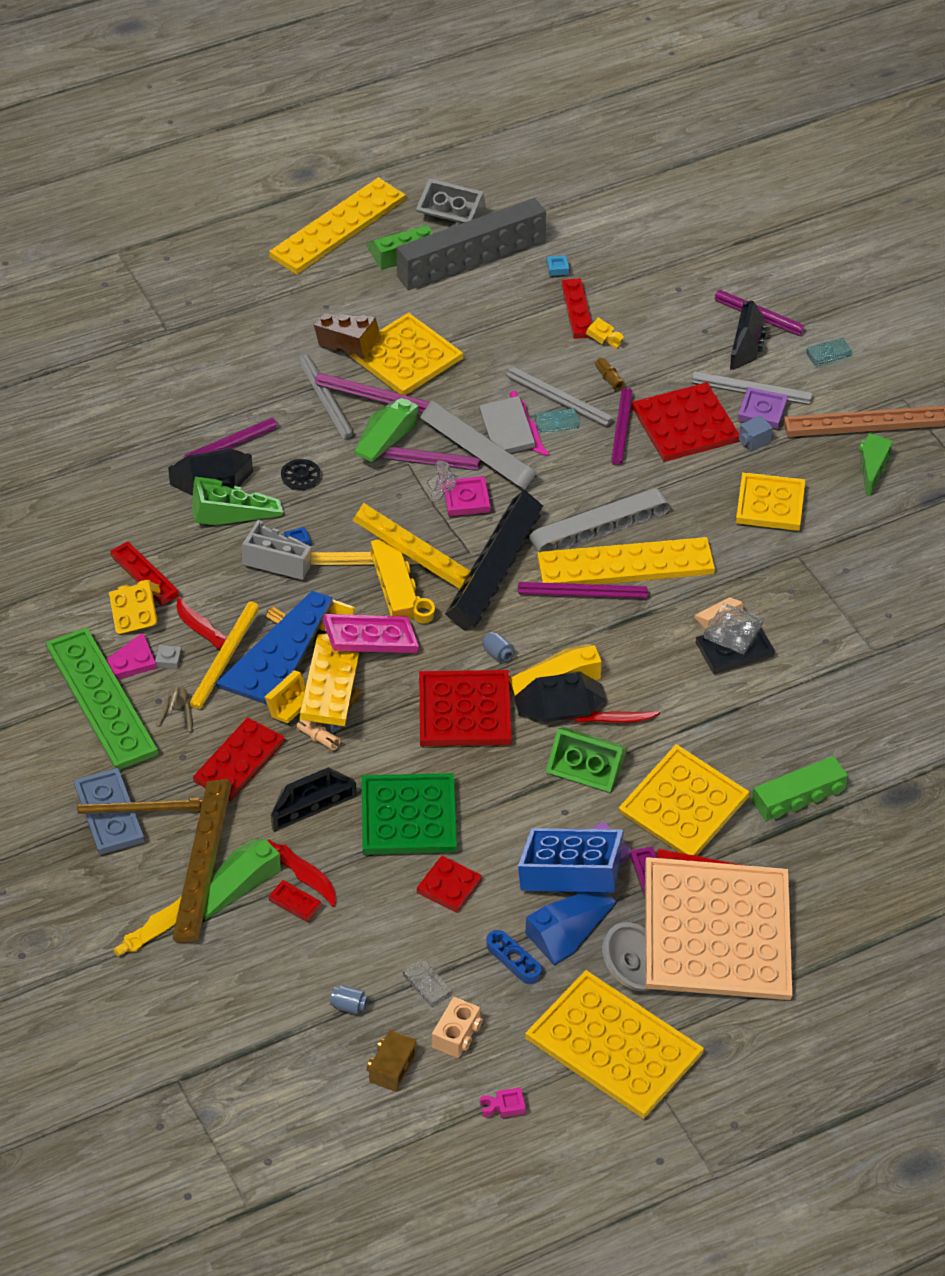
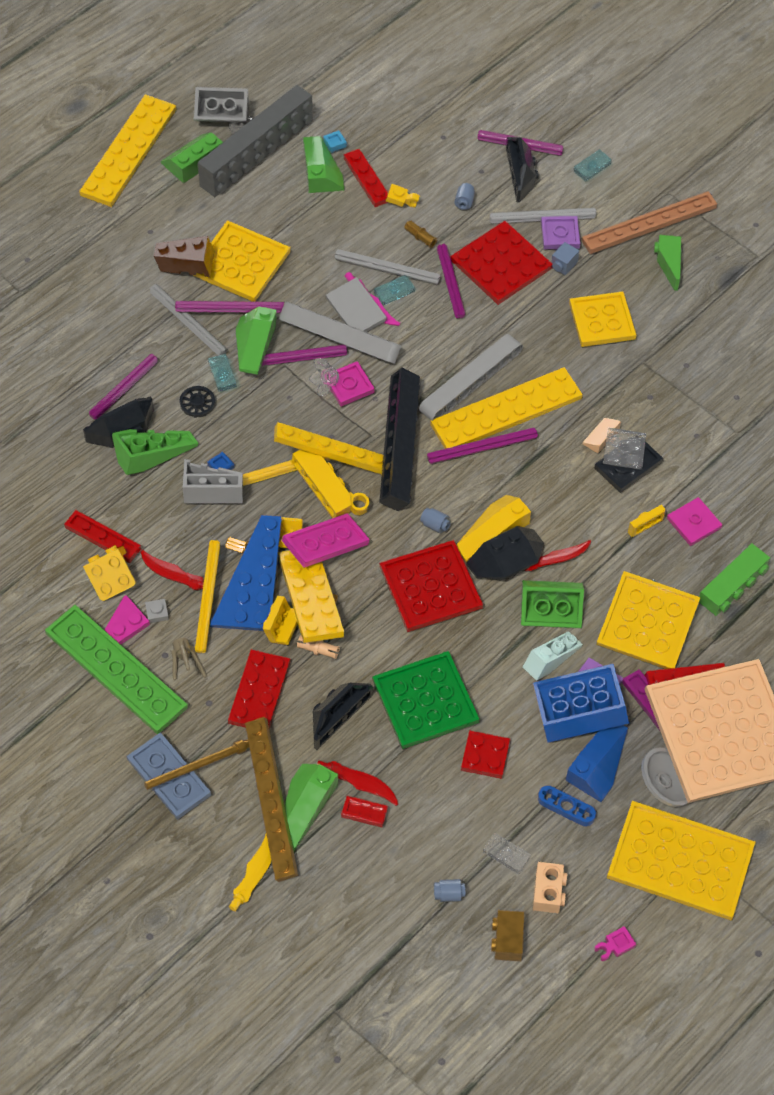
camera: 20 degrees left, 10 degrees up
(337, 453) = (222, 372): none -> clear light blue plate
(531, 287) = (321, 168): none -> bright green wedge
(561, 807) = (551, 655): none -> light aqua slope
(673, 349) = (464, 196): none -> sand blue brick
(728, 706) = (646, 520): none -> yellow plate
(783, 722) = (694, 521): none -> dark pink plate

